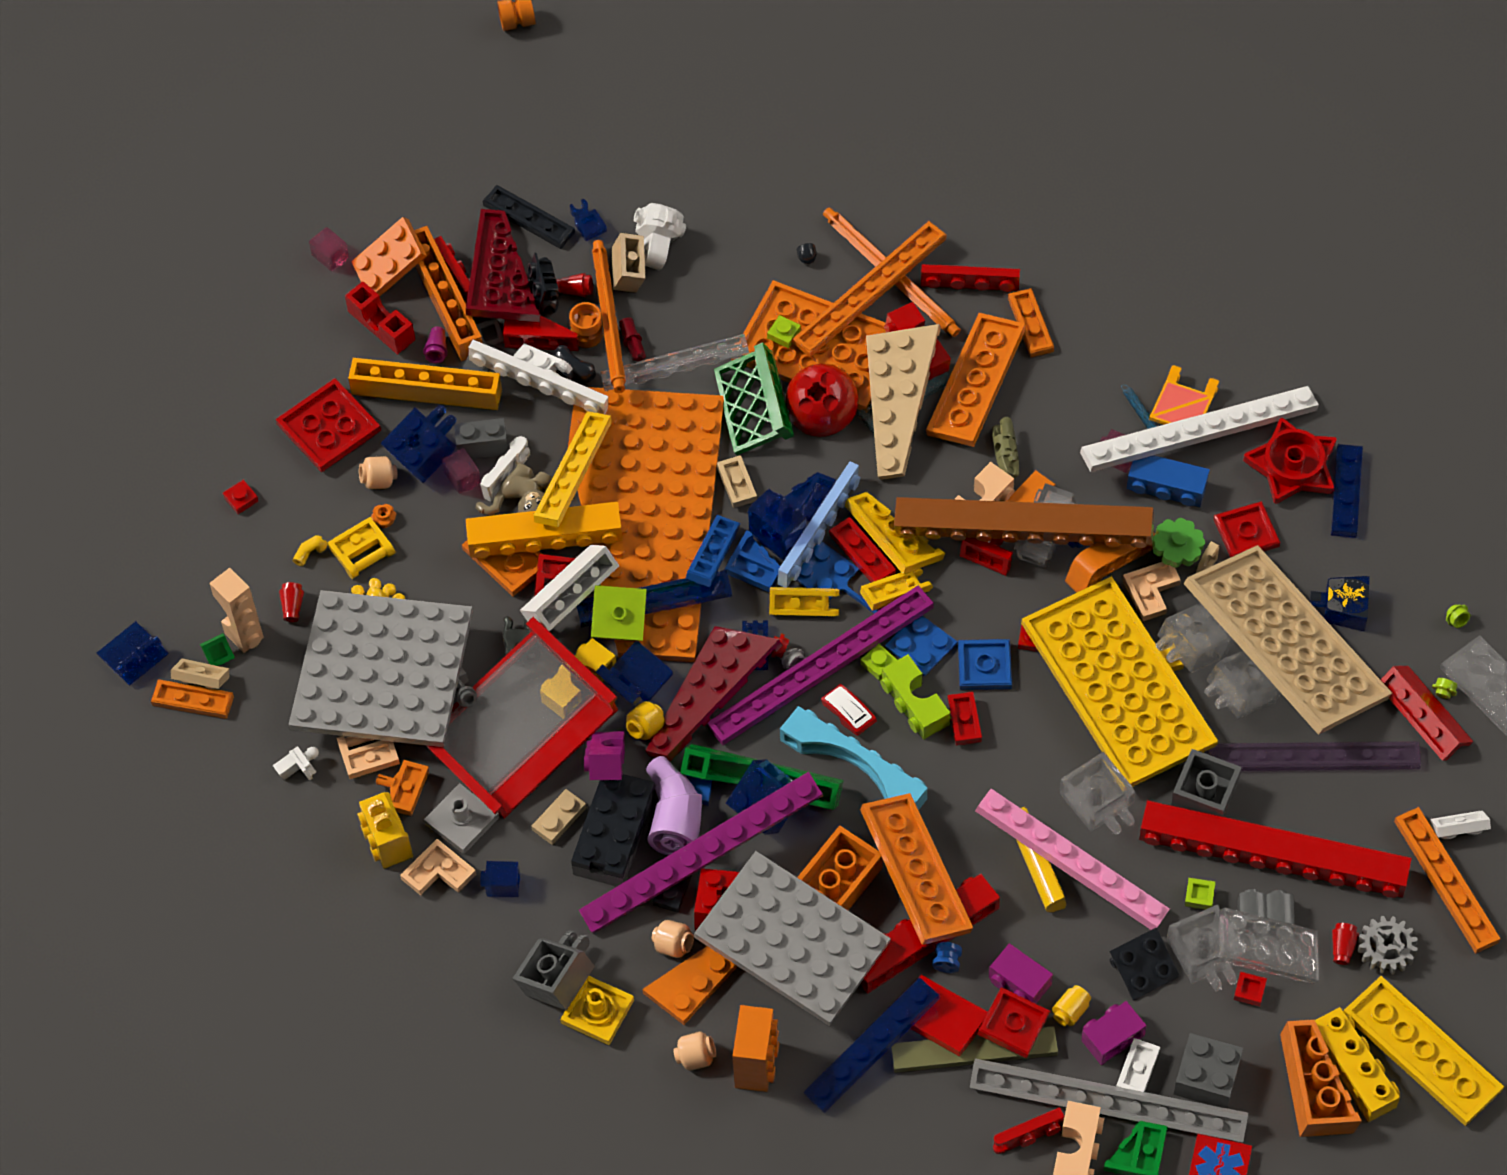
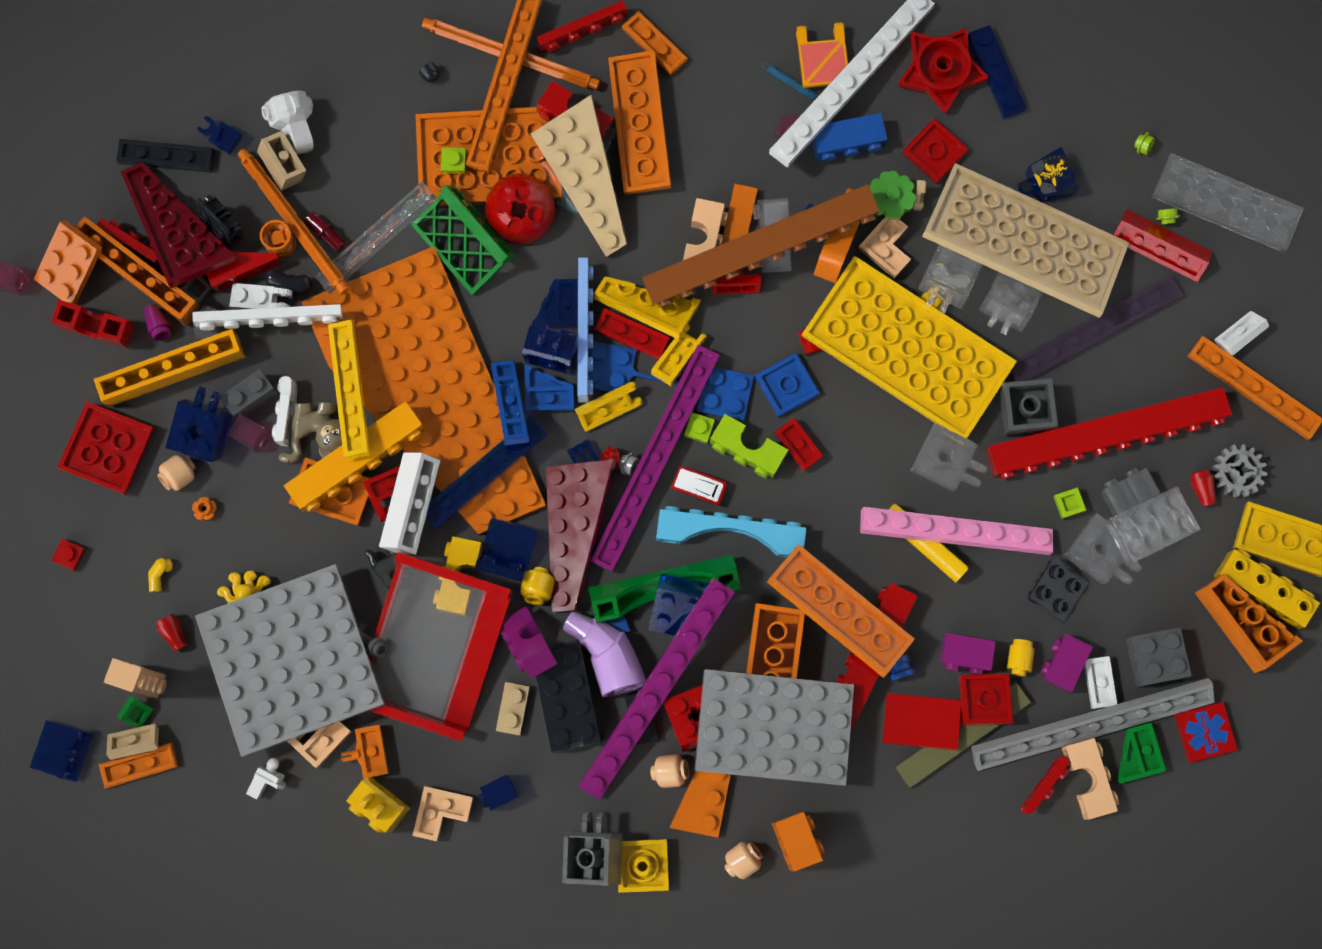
camera: 30 degrees left, 20 degrees up
(357, 541) = (195, 547): yellow plate -> none
(461, 818) = (431, 755): light grey tile -> none
(576, 285) = (246, 203): red cone -> none
(618, 613) = (464, 505): lime plate -> none
(737, 481) = (490, 322): tan plate -> none
(871, 1045) = (883, 779): clear blue plate -> none
(1006, 447) = (699, 175): olive hinge -> none
(1250, 989) = (1152, 567): red plate -> none

